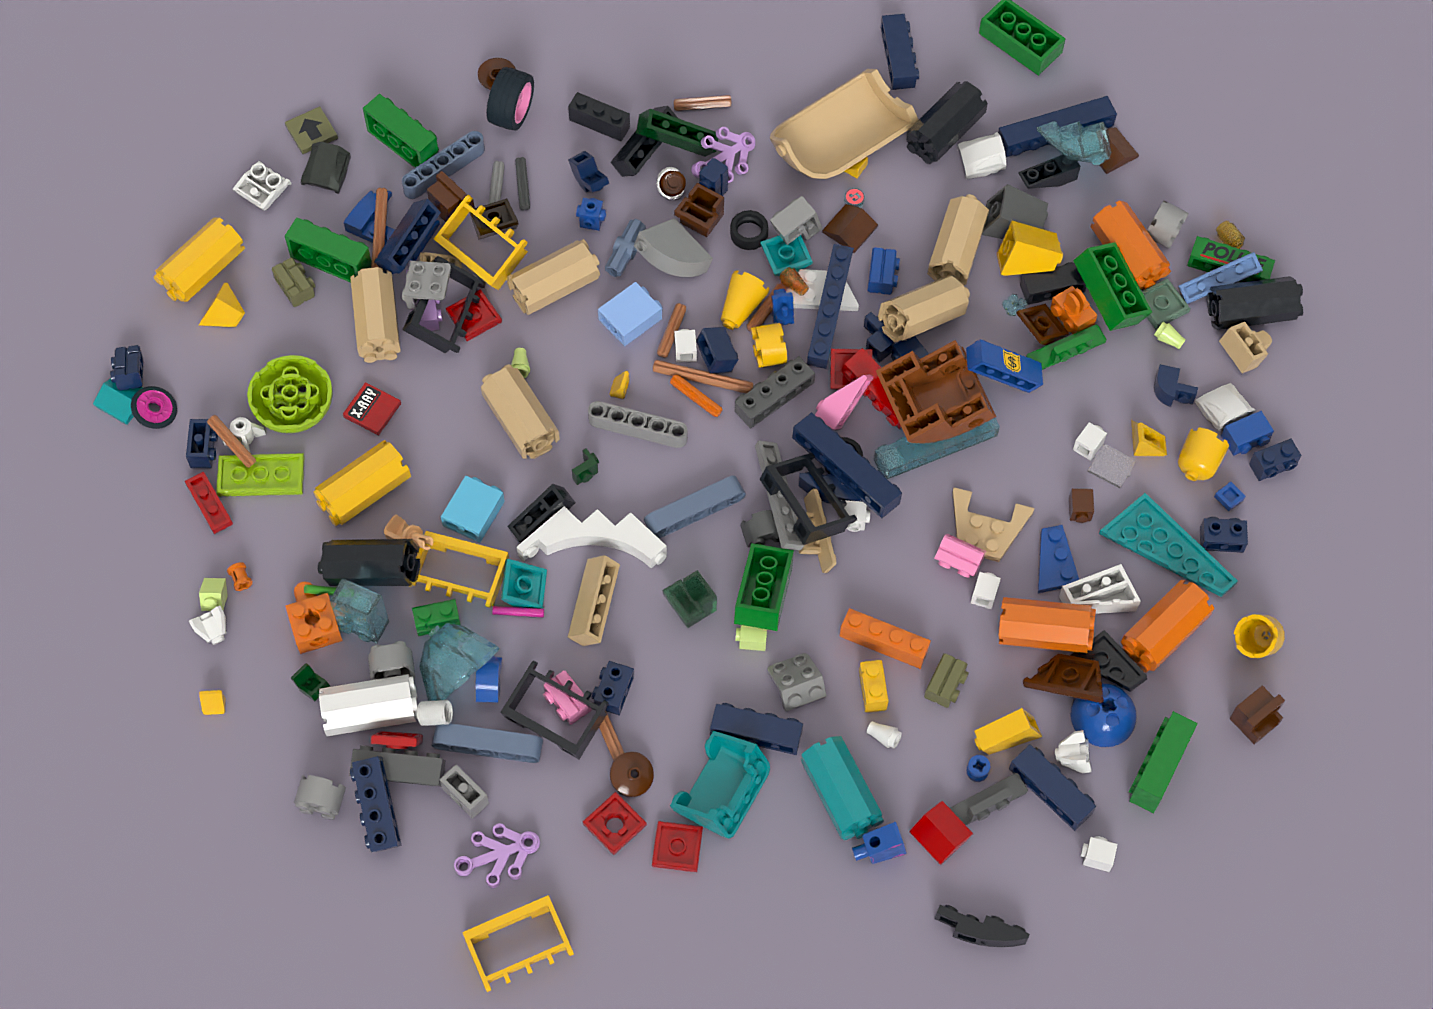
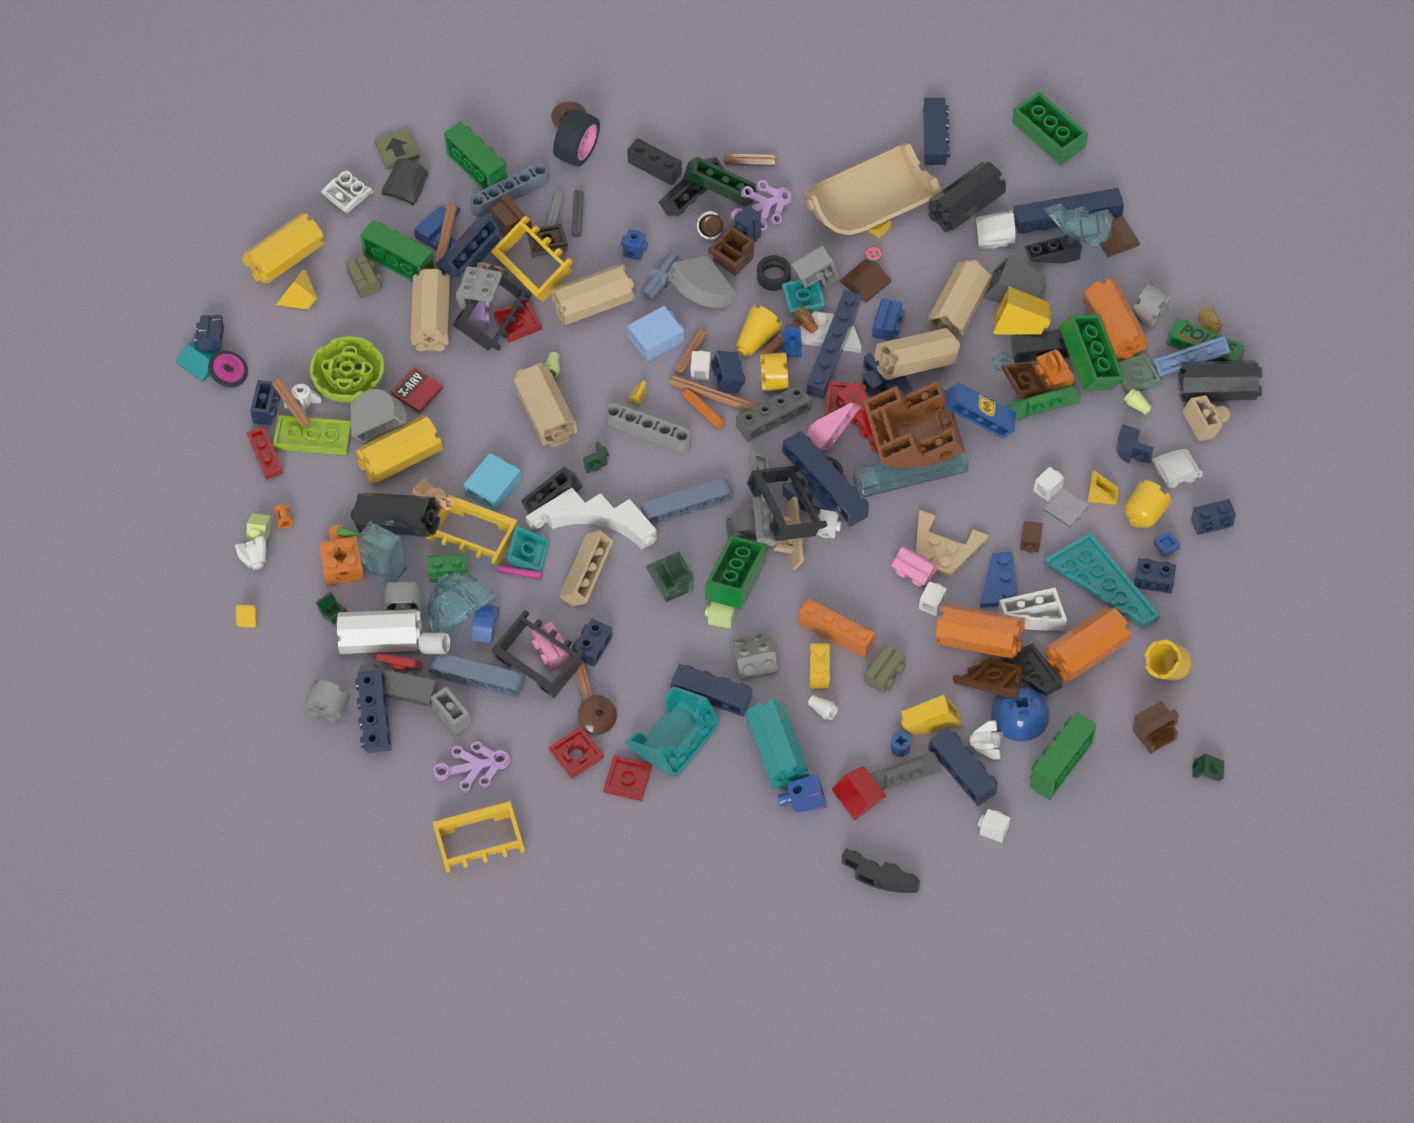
camera: 10 degrees right, 5 degrees down
(330, 444) = (375, 414): none -> light grey brick
(587, 173) = (636, 208): dark blue brick -> none
(1247, 433) = (1192, 492): blue brick -> none
(1321, 753) = (1208, 766): none -> dark green bracket

